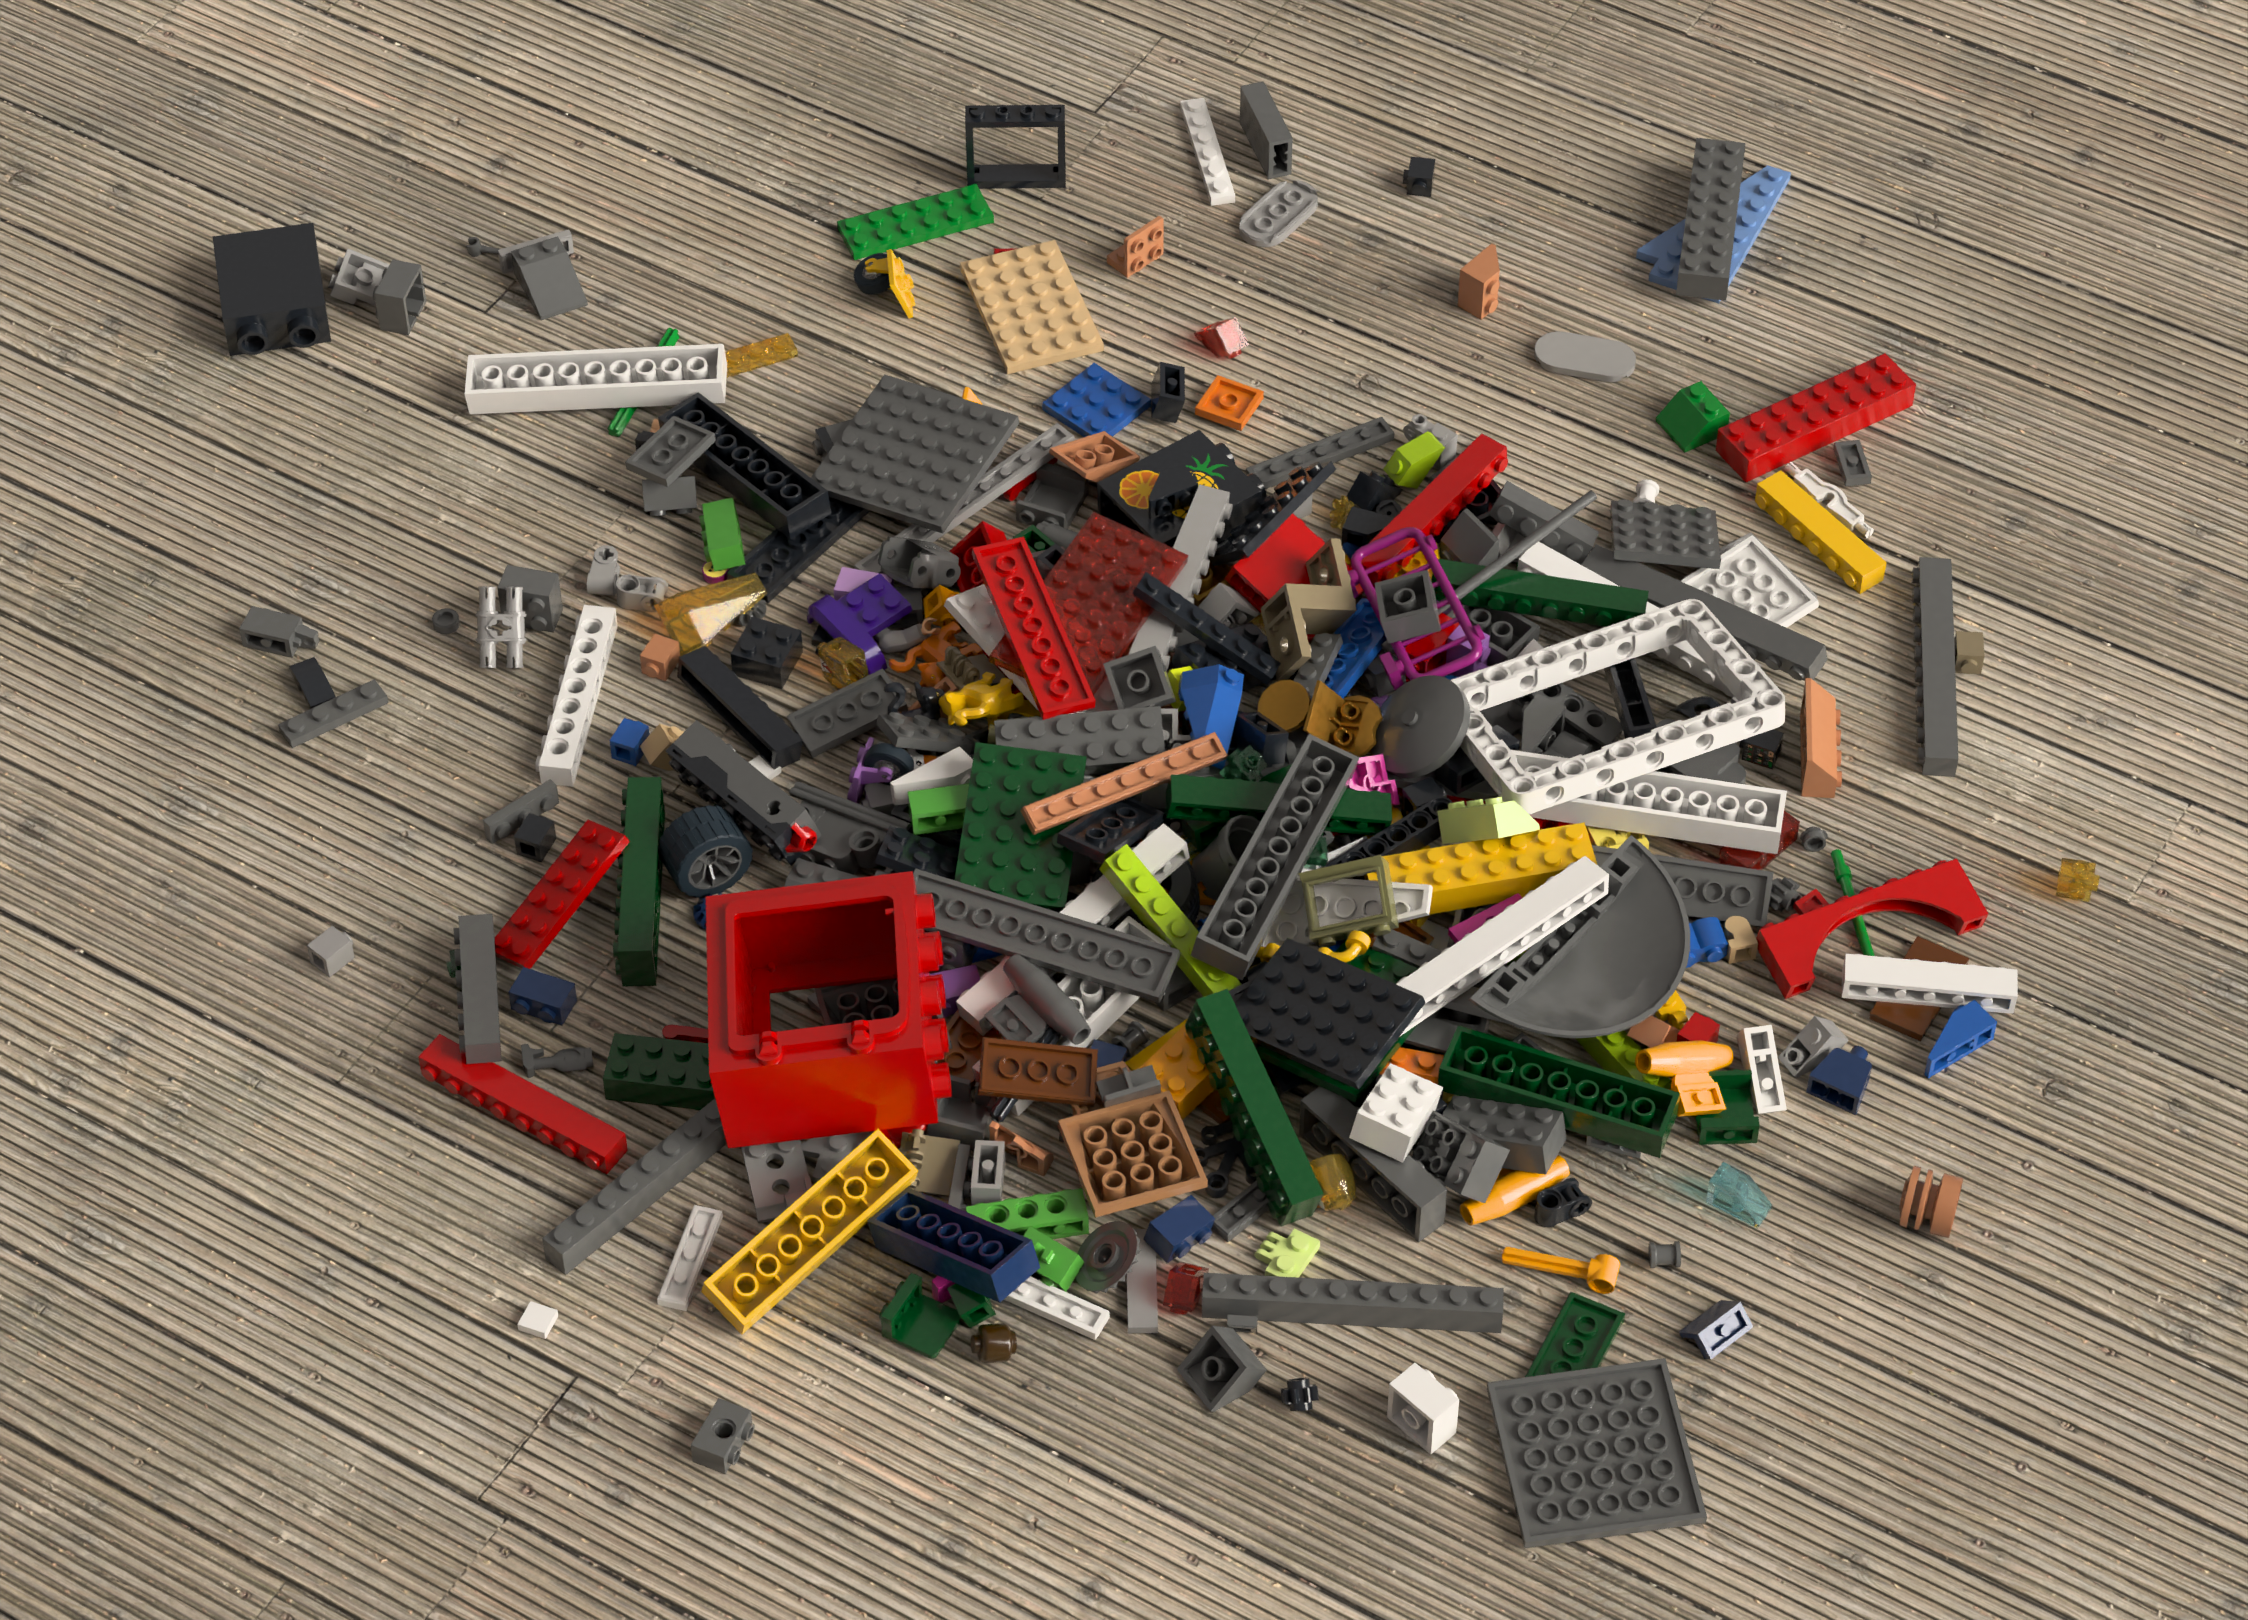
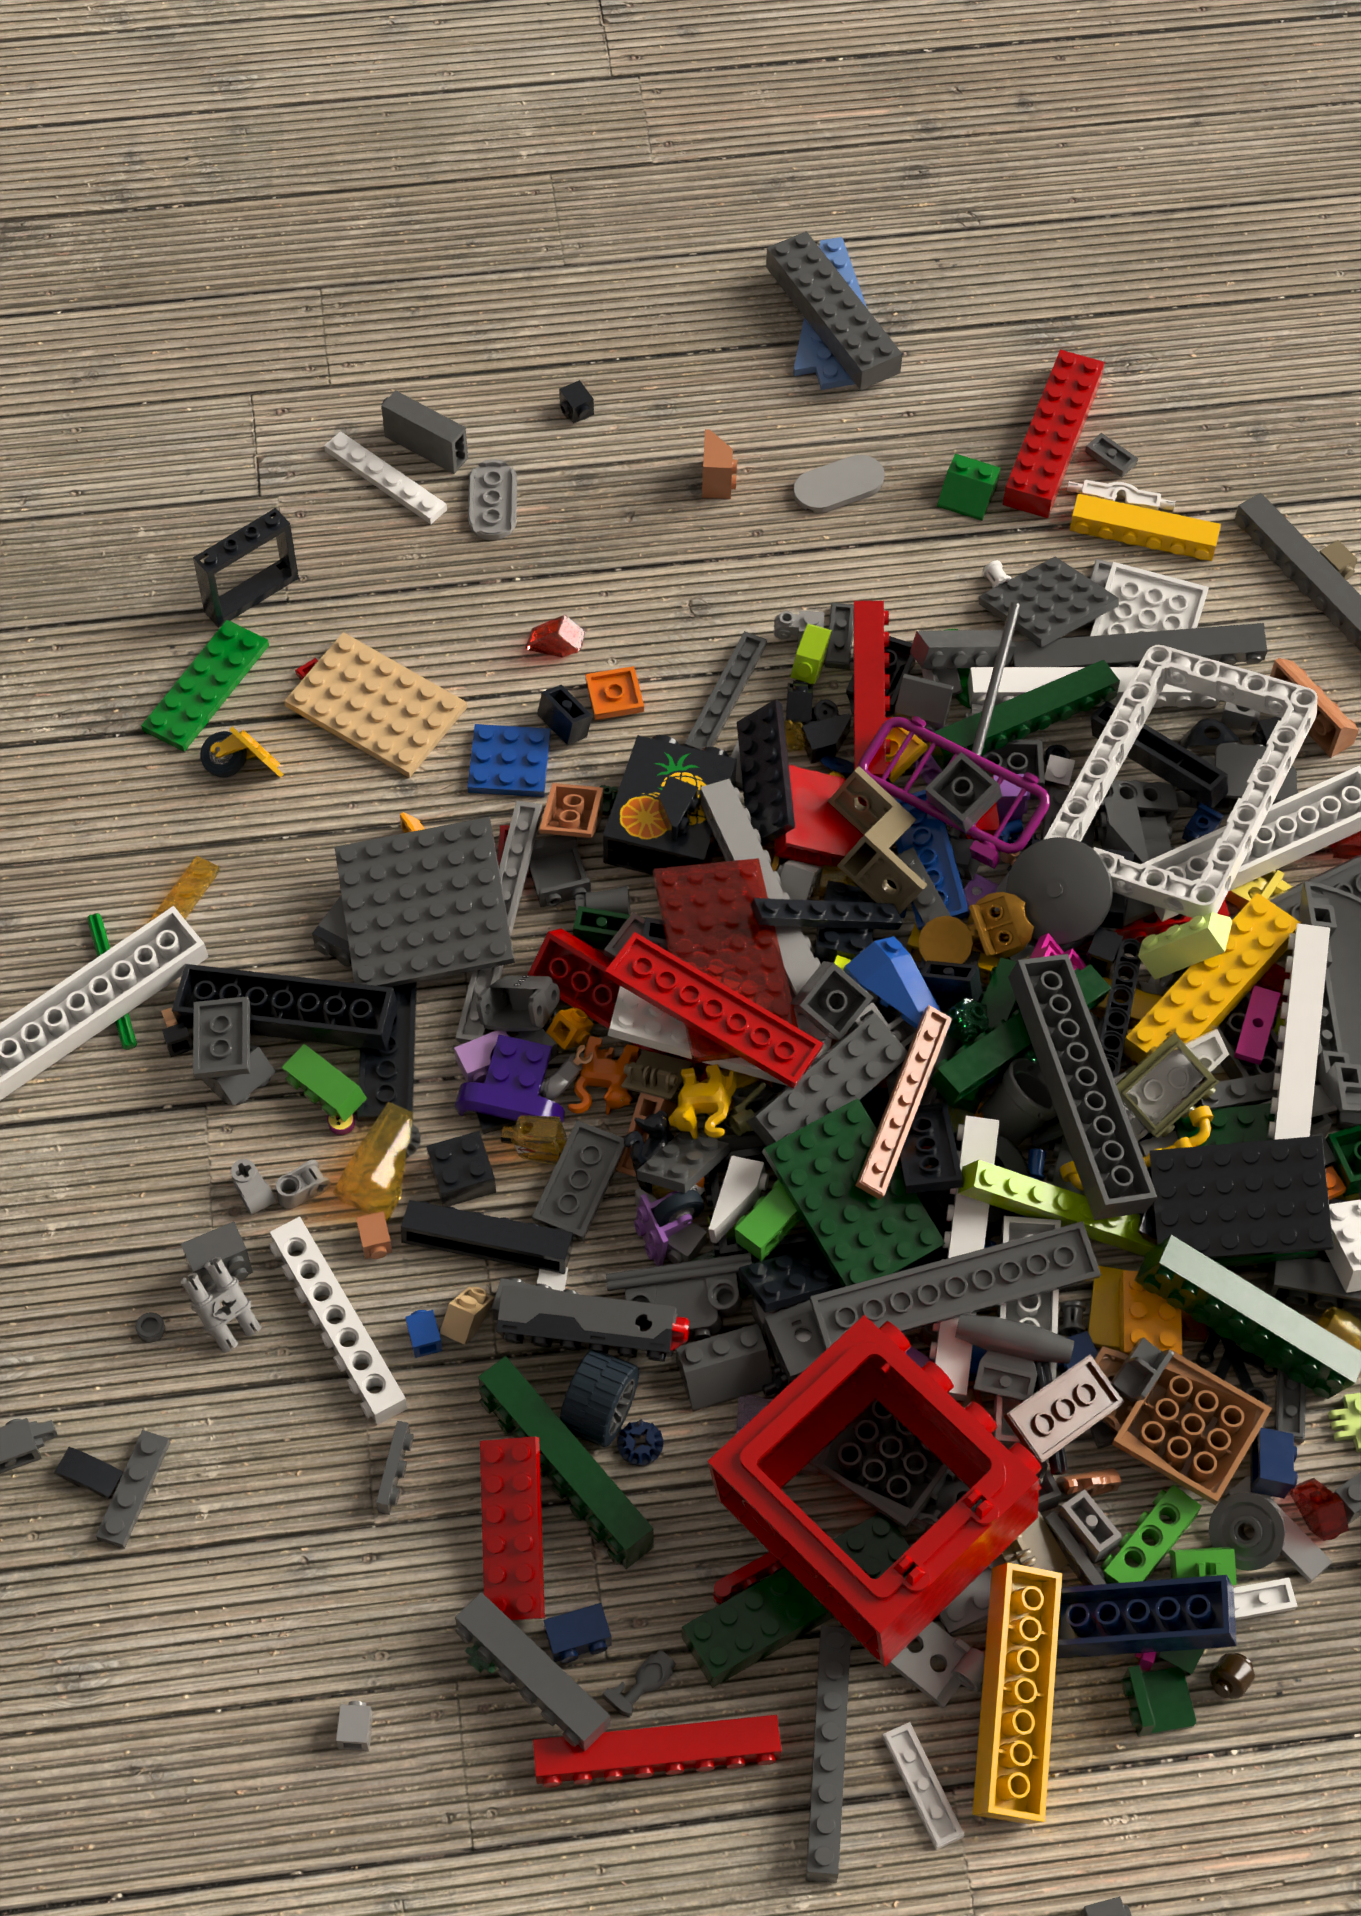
camera: 40 degrees left, 10 degrees up
(535, 837) = (428, 1483): black brick -> none
(1139, 248) = (415, 601): nougat bracket -> none

